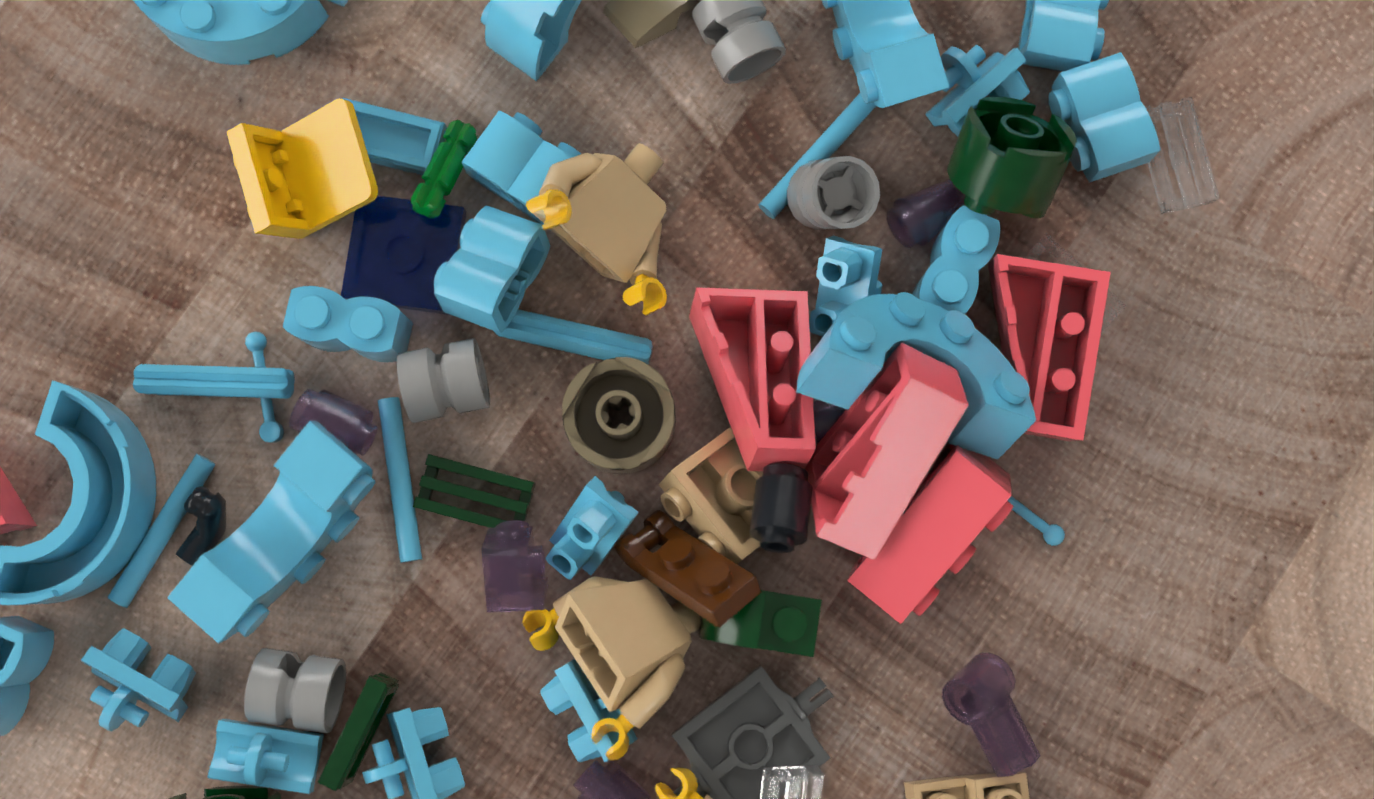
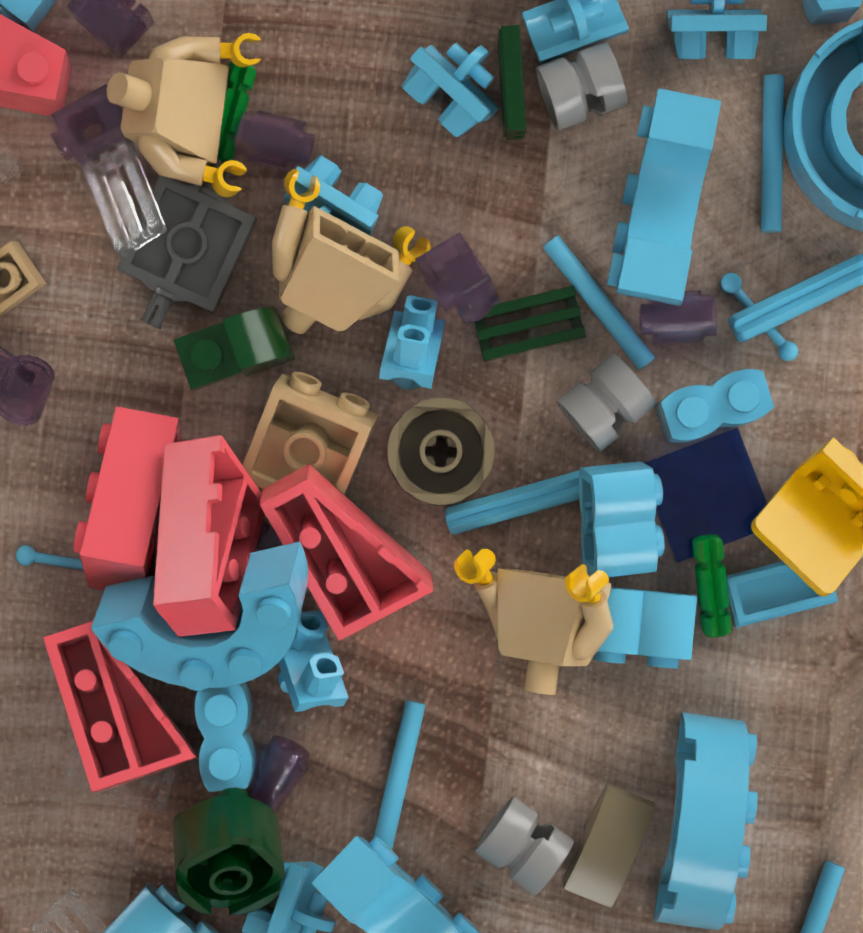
camera: 150 degrees right, 5 degrees up
(209, 527) = (733, 175): black arm -> none
(688, 569) = (313, 355): reddish brown plate -> none
(781, 508) = (263, 445): black brick -> none
(833, 193) = (363, 742): light grey wheel -> none

